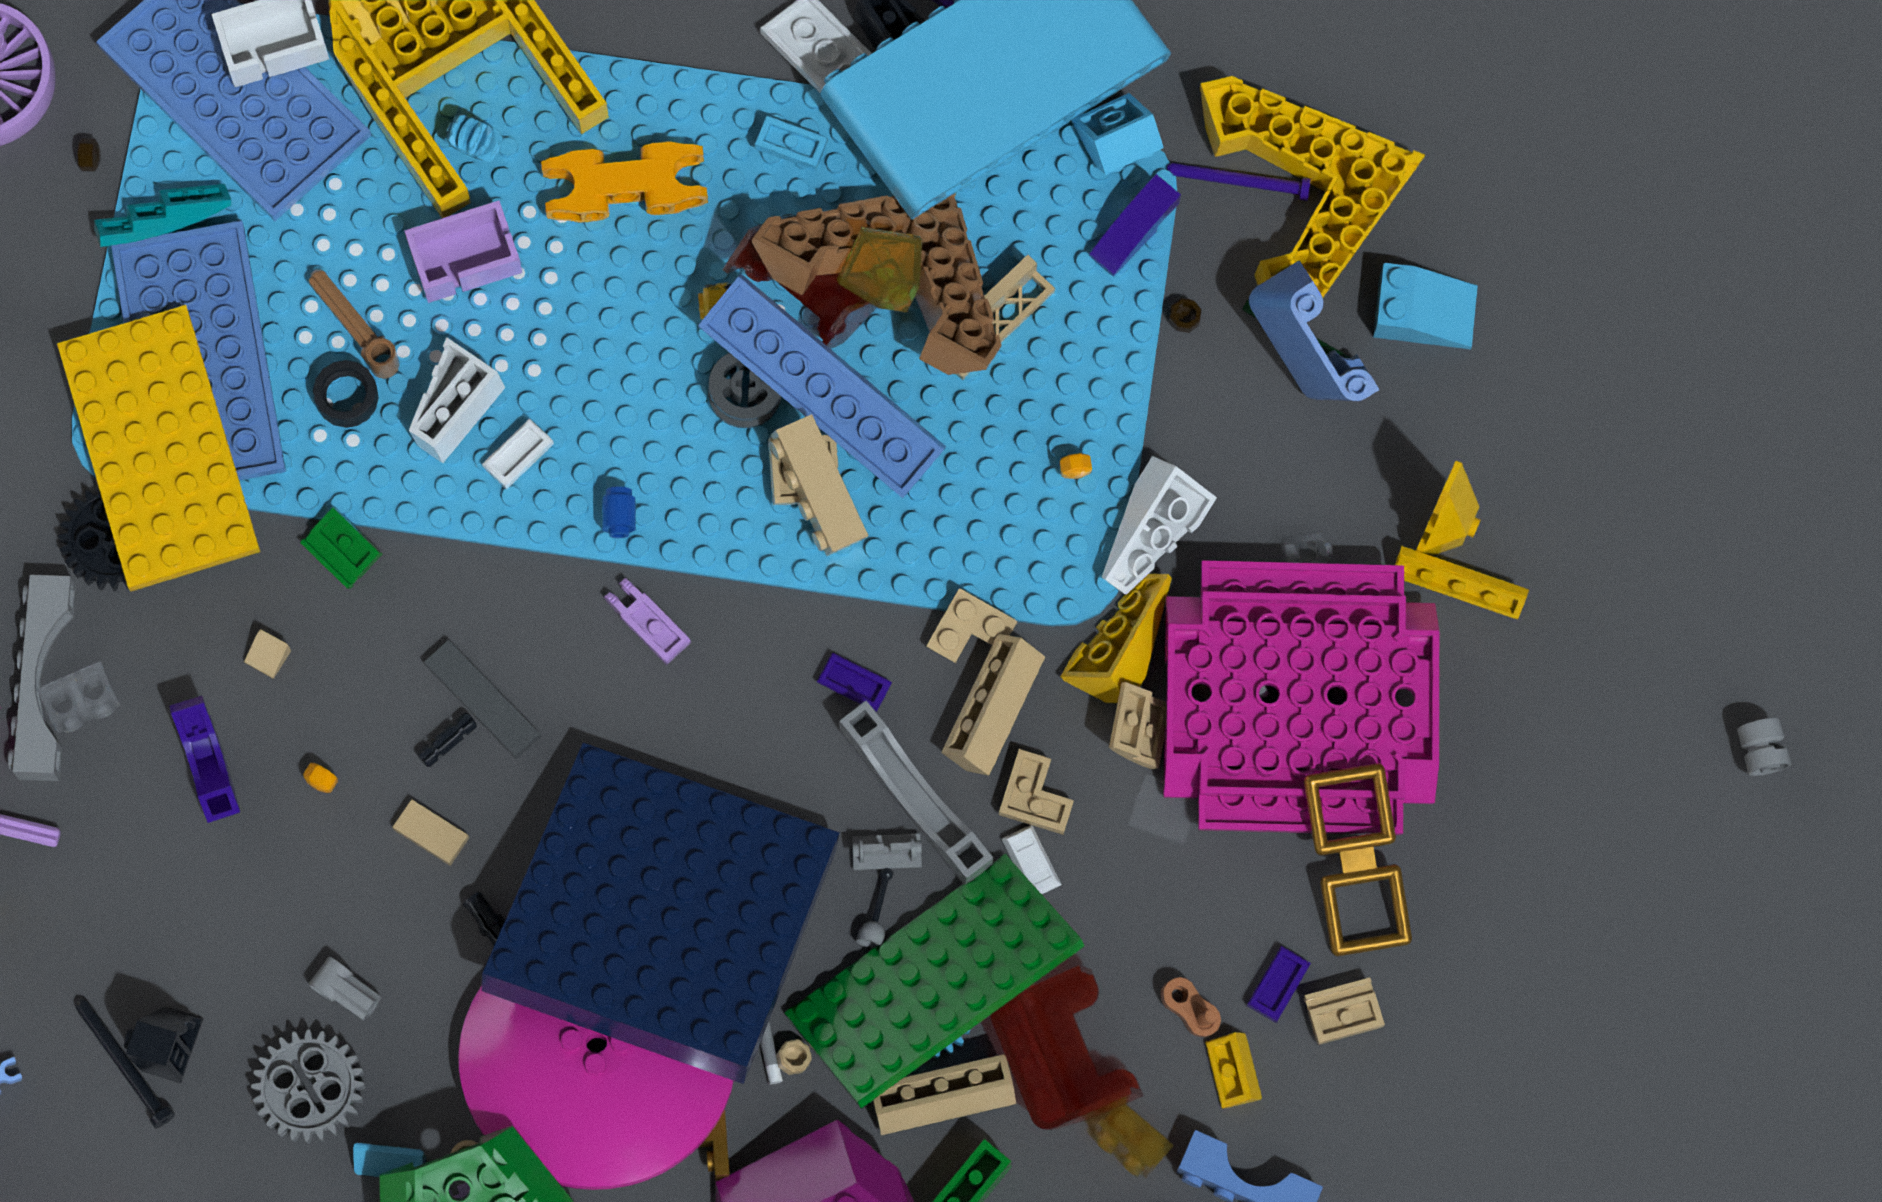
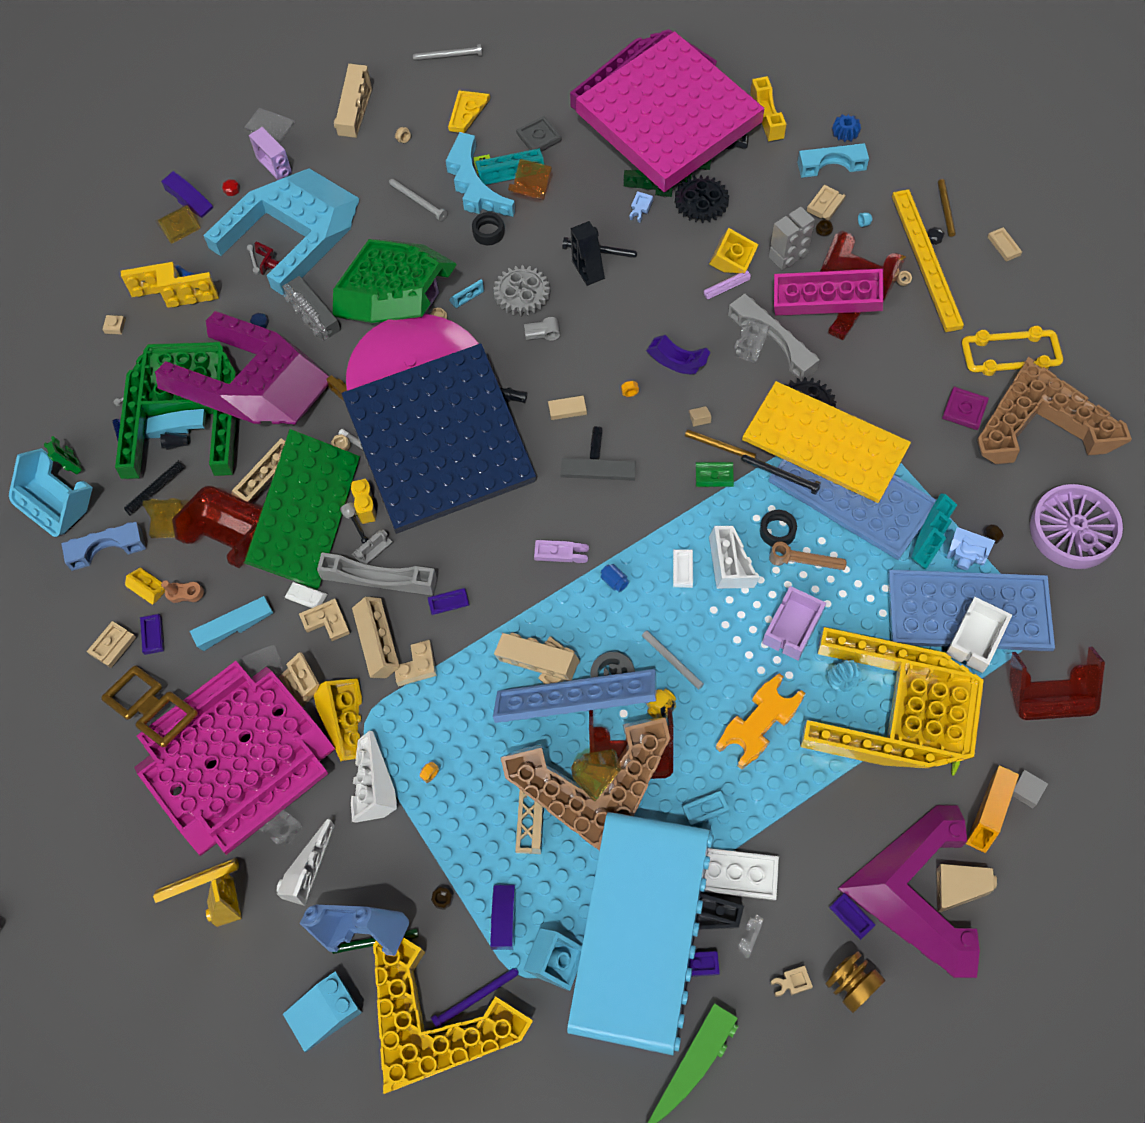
camera: 145 degrees right, 10 degrees down
(153, 149) = (969, 548): none -> light blue brick
(246, 397) = (814, 487): none -> black bar
(286, 587) = (718, 444): none -> pearl gold bar
(650, 350) = (672, 659): none -> light grey bar
(835, 934) = (363, 501): none -> yellow brick
(1161, 899) = (236, 620): none -> medium azure slope
(1336, 477) = (302, 873): none -> white wedge

